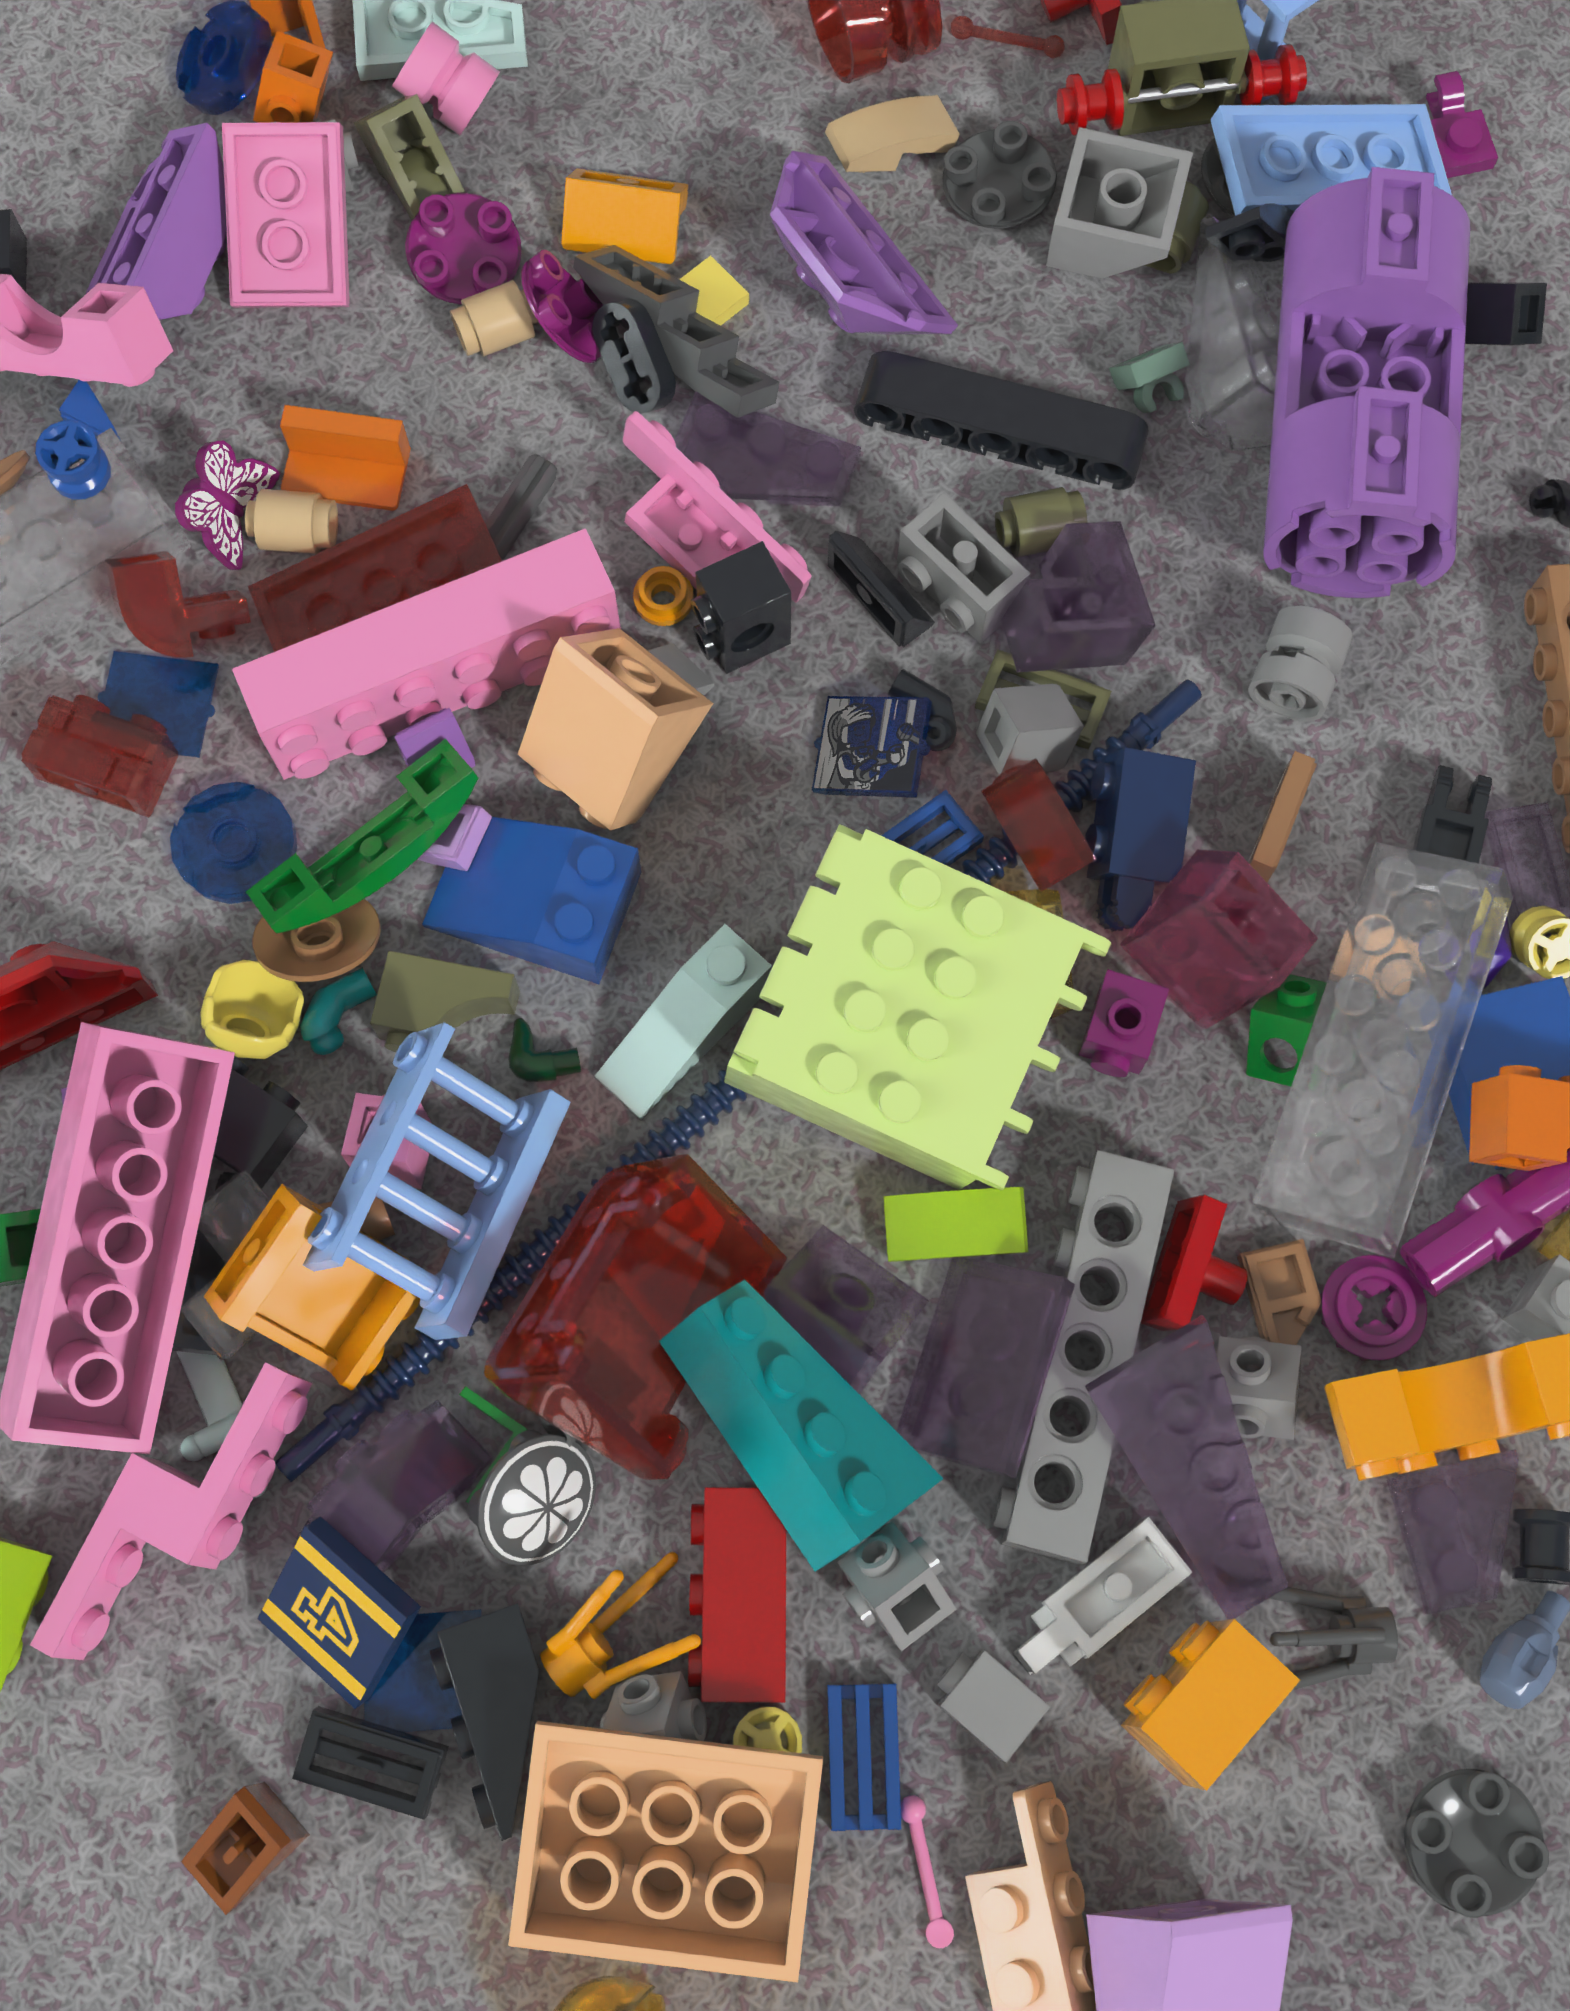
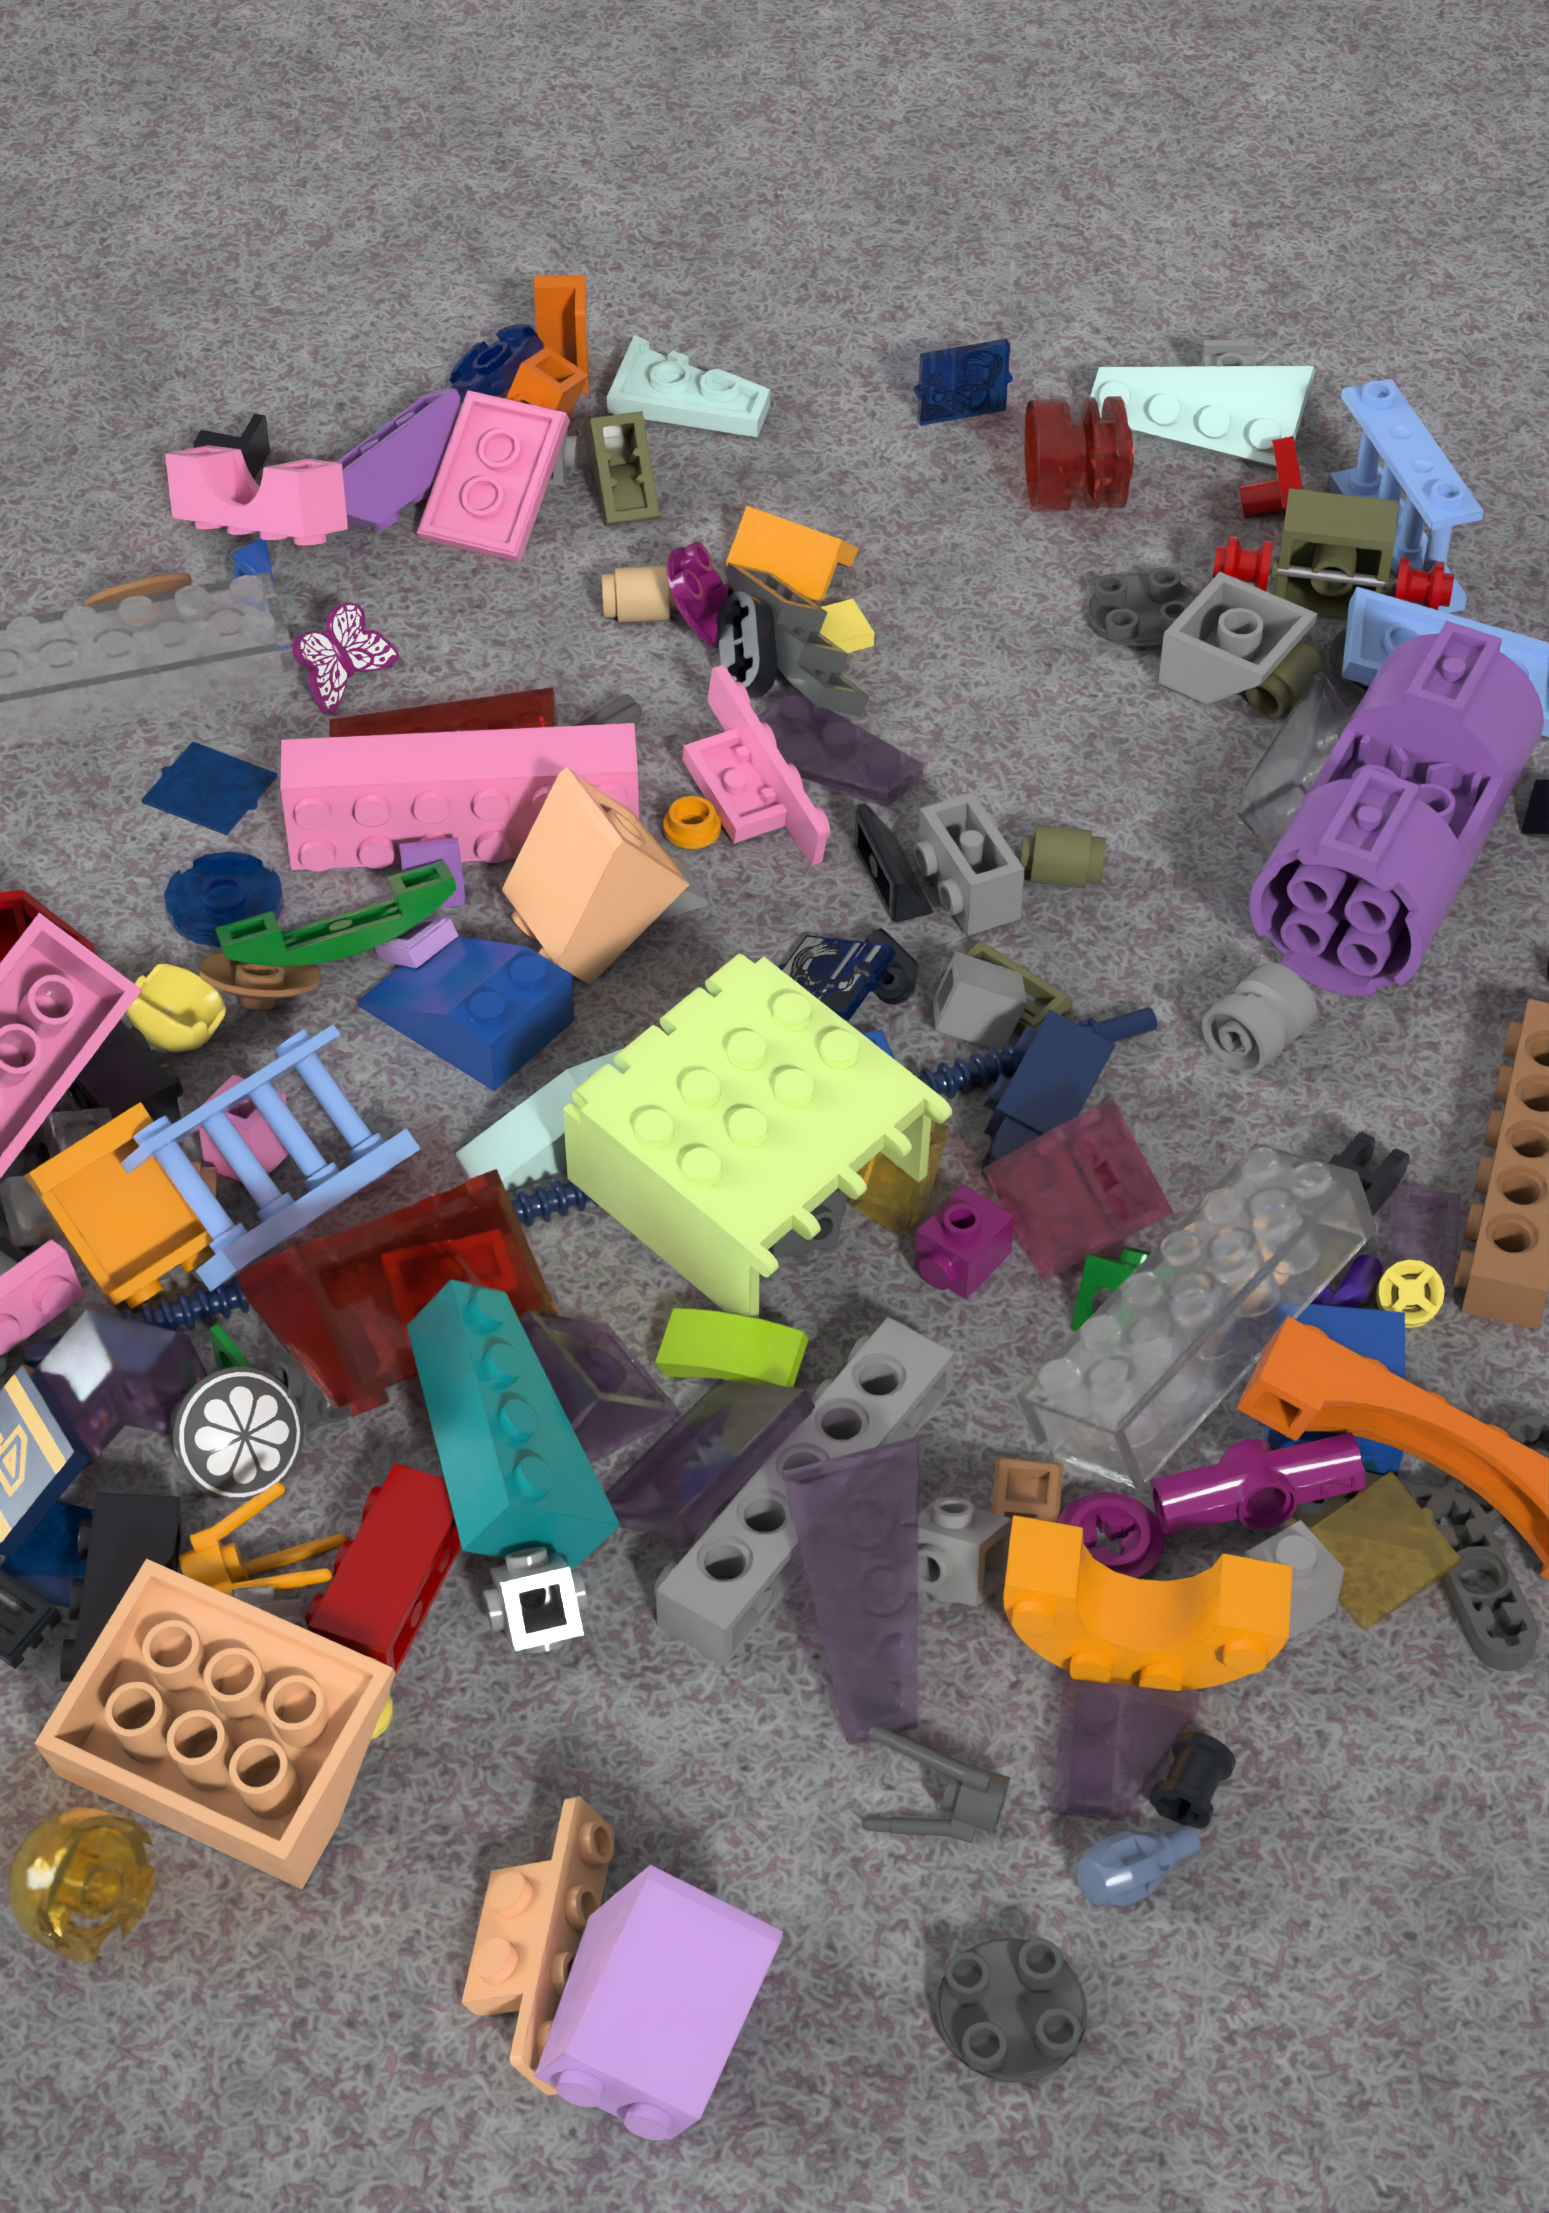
camera: 20 degrees right, 25 degrees down
(65, 445) = (225, 574): blue wheel -> none
(101, 754) = (142, 801): clear red brick -> none
(153, 608) = (240, 709): clear red brick -> none
(292, 521) = (390, 683): tan brick -> none
(327, 1008) = (247, 1033): teal arm -> none
(345, 456) = (460, 653): orange panel -> none
(428, 991) = (363, 1053): olive arch -> none
(446, 78) = (681, 423): bright pink wheel -> none
(462, 245) = (634, 534): magenta dish -> none
(541, 1065) = (424, 1133): dark green animal -> none
(742, 608) = (752, 835): black brick -> none
(849, 254) = (972, 618): medium lavender wedge -> none
(866, 1819) = (460, 1699): blue tile -> none
(882, 132) = (1042, 551): tan slope -> none
(938, 1930) = (445, 1915): bright pink hinge -> none
(963, 28) = (1162, 502): clear red hinge -> none
(990, 1703) = (583, 1733): light grey brick -> none
(1003, 418) = (1063, 774): black beam -> none
(1038, 824) = (947, 1052): clear red brick -> none
(1084, 607) = (1066, 919): clear purple brick -> none
(1104, 1598) = (730, 1687): white hinge -> none
(1150, 369) = (1217, 771): sand green tile -> none
(1189, 1266) = (942, 1444): red tile -> none
(1207, 1701) = (788, 1775): light orange brick -> none
(1252, 234) = (1340, 679): black slope -> none
(1282, 814) = (1189, 1128): medium nougat tile -> none

